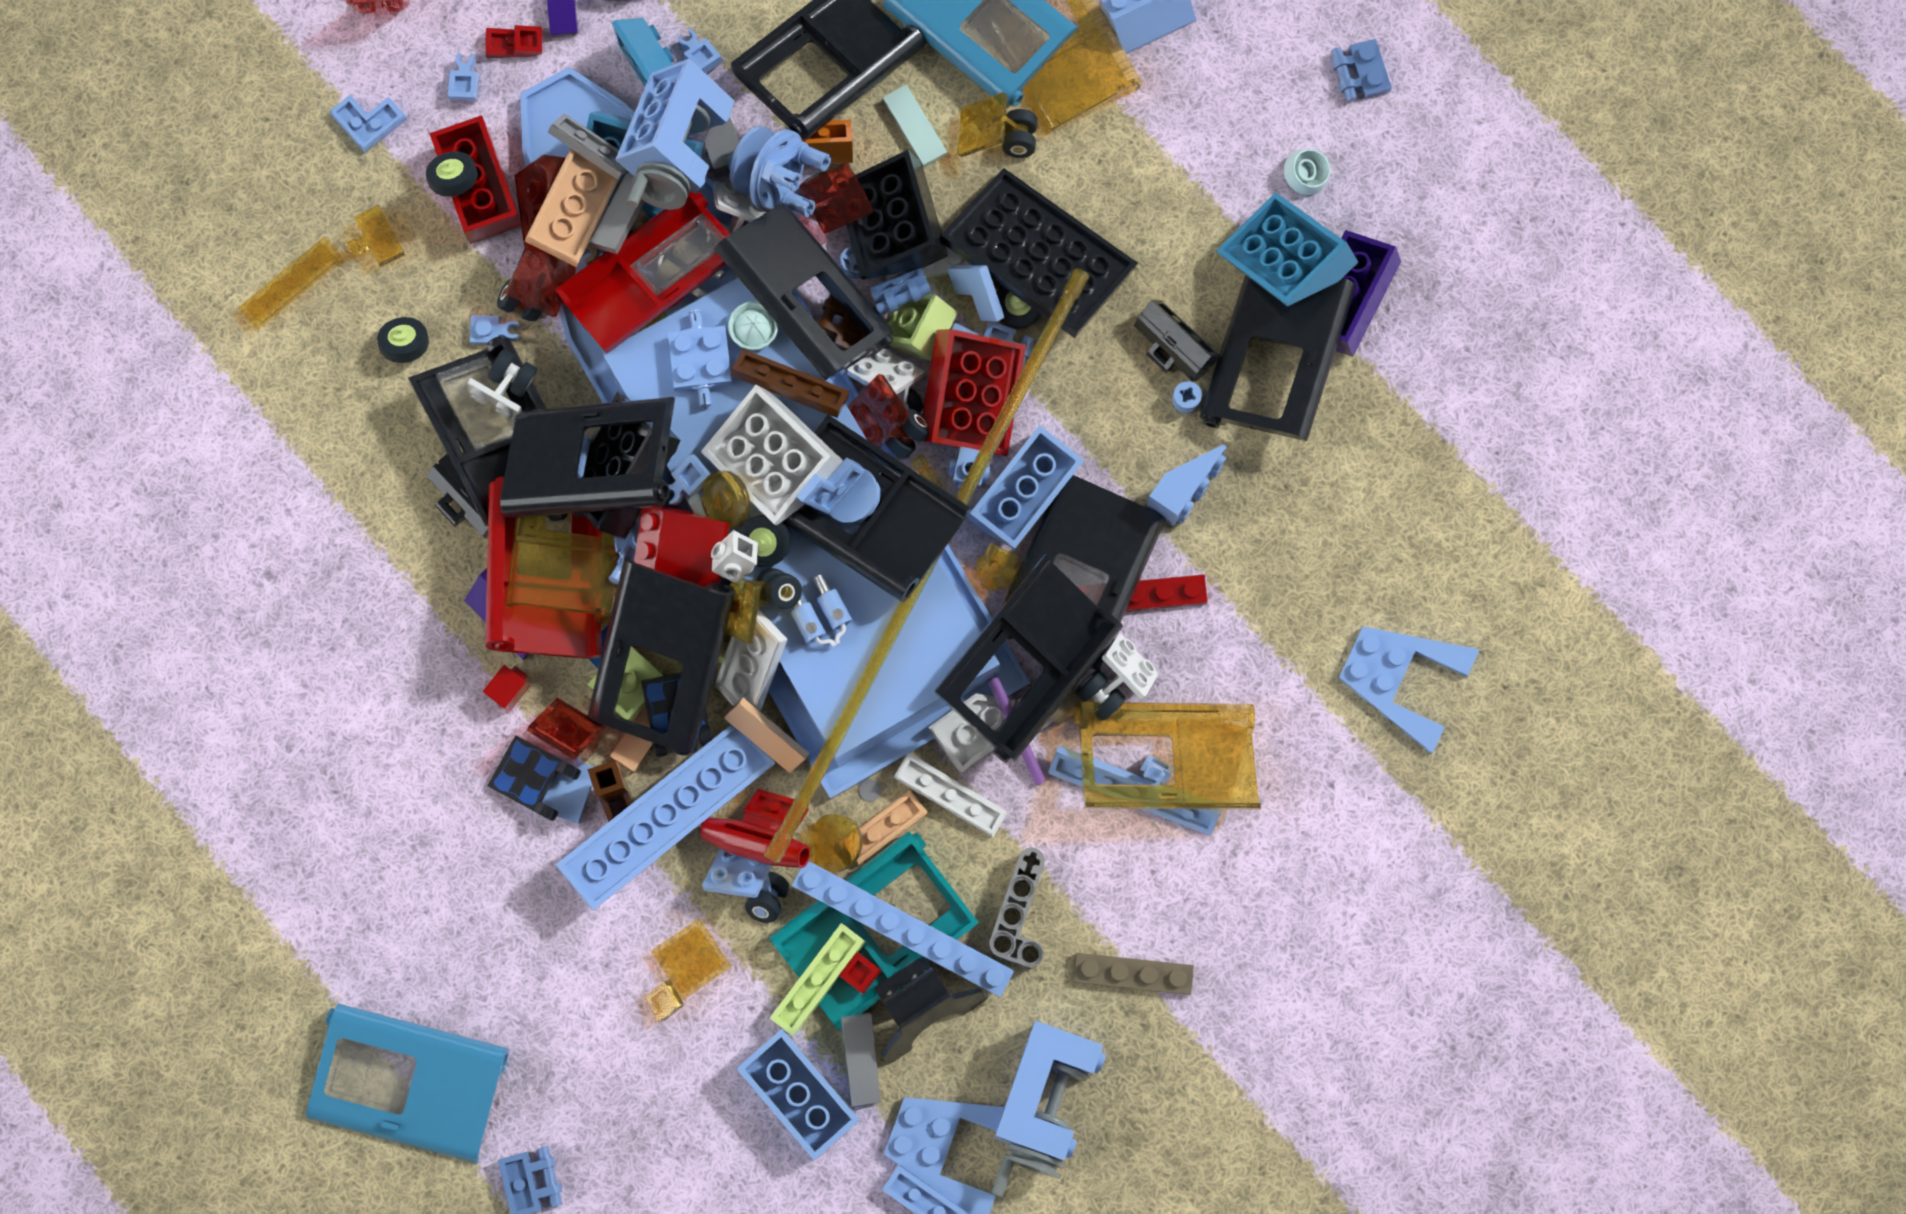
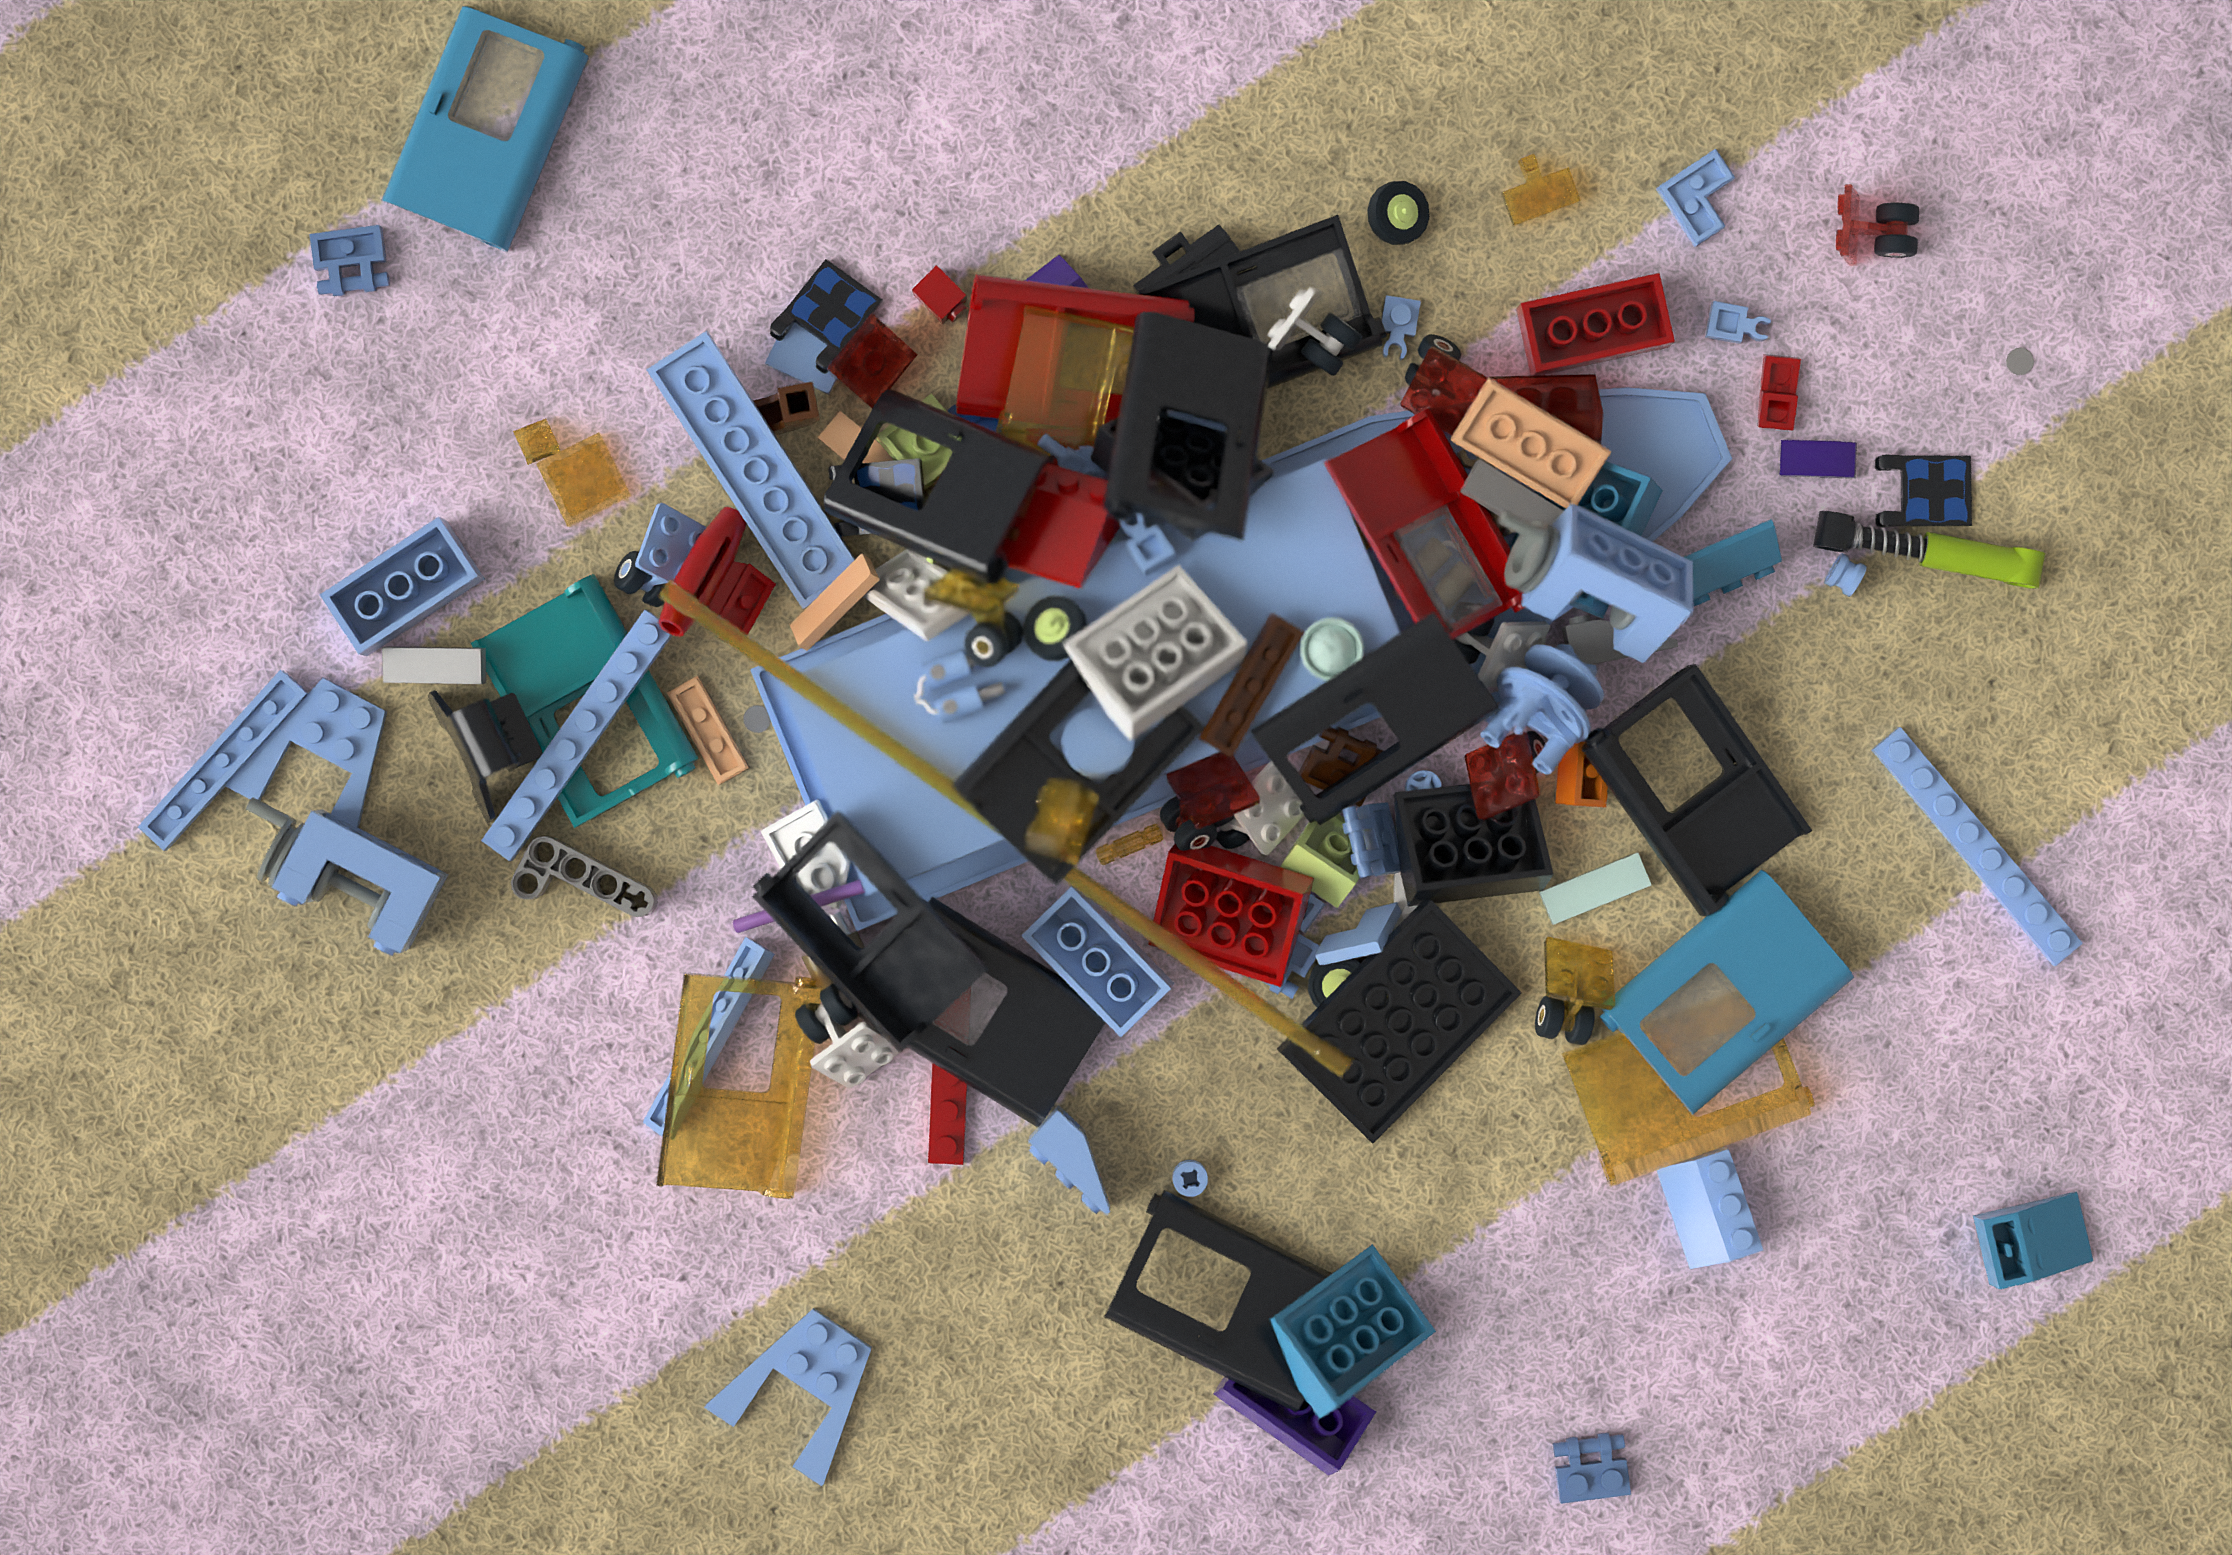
camera: 95 degrees right, 10 degrees up
(291, 283) = (1495, 80): clear yellow plate -> none
(451, 174) = (1595, 295): black wheel -> none
(587, 145) = (1608, 470): light grey tile -> none
(699, 358) = (1300, 578): light blue plate -> none
(701, 53) = (1726, 628): light blue plate -> none
(726, 498) = (1112, 588): clear yellow tile -> none
(734, 556) = (1033, 589): white brick -> none
(817, 980) = (533, 626): yellowish green plate -> none
(825, 493) = (1097, 710): light blue tile -> none
(834, 842) = (696, 667): clear yellow tile -> none
(860, 973) = (533, 677): red plate -> none
(917, 508) = (1062, 820): none -> clear yellow slope
(950, 794) = (735, 814): white tile -> none
(964, 459) = (1138, 880): light blue brick -> none
(994, 559) = (1005, 923): clear yellow brick -> none
(1133, 973) = (491, 1003): dark tan plate -> none
(1156, 769) = (728, 1068): light blue plate -> none
(1179, 340) = (1263, 1178): black piece -> none
(1305, 163) = (1473, 1379): light aqua hat -> none

